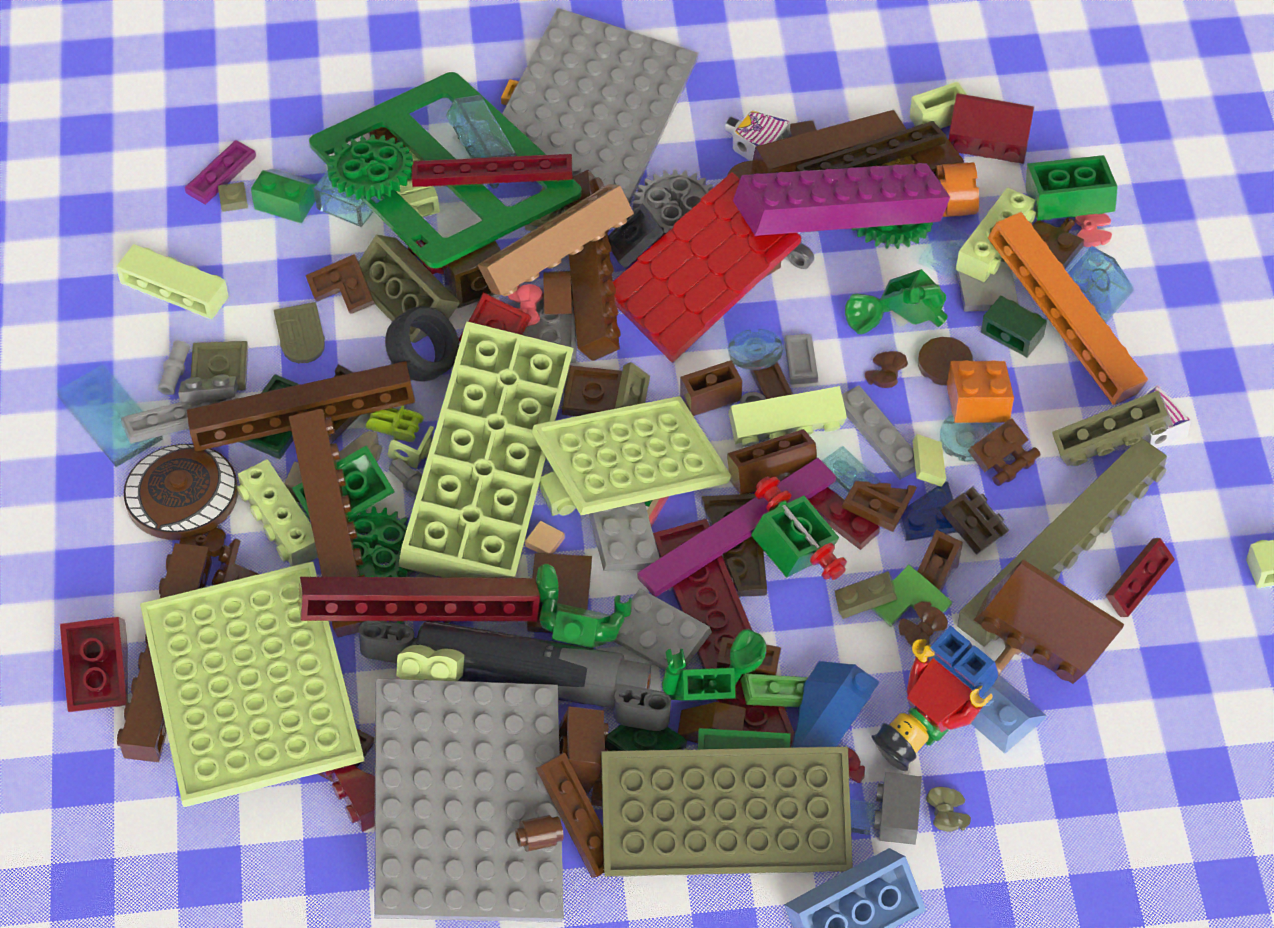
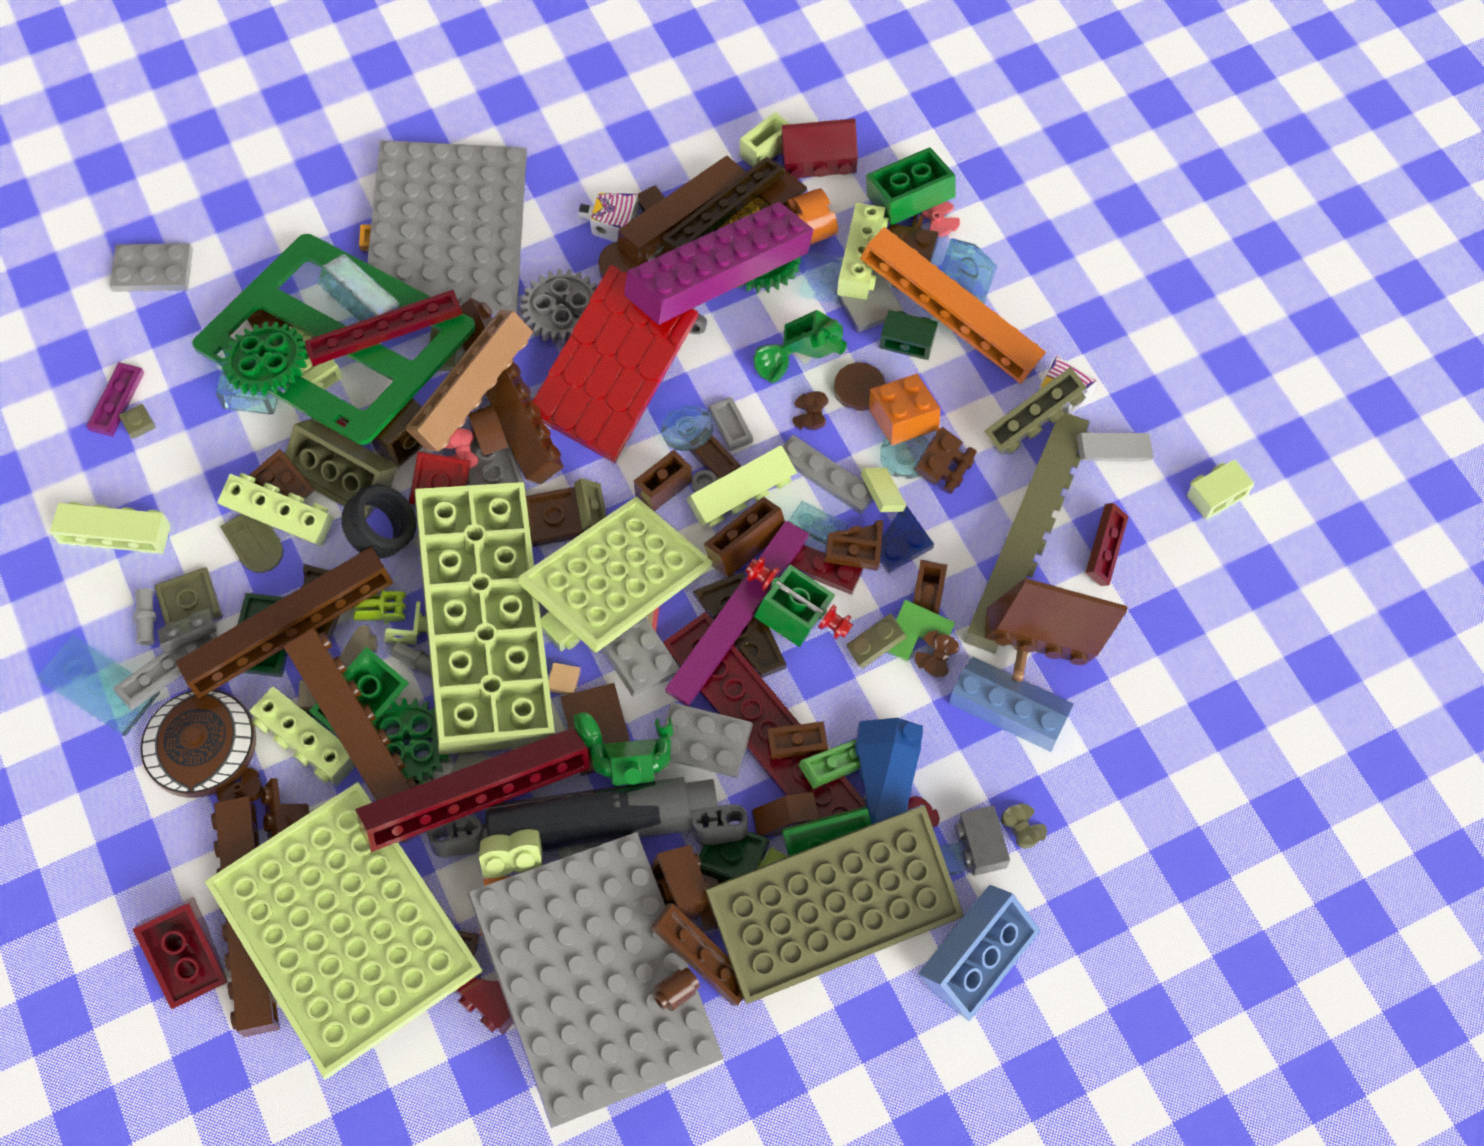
camera: 20 degrees left, 10 degrees up
(283, 194) = (187, 404): green slope -> none
(298, 65) = (151, 267): none -> light grey plate
(330, 307) = (275, 509): none -> yellowish green brick
(634, 236) = (540, 351): black plate -> none
(713, 683) = (776, 780): green torso -> none
(941, 696) = (986, 725): piece -> none
(974, 528) = (942, 540): dark brown plate -> none
(1185, 488) = (1114, 446): none -> light grey tile

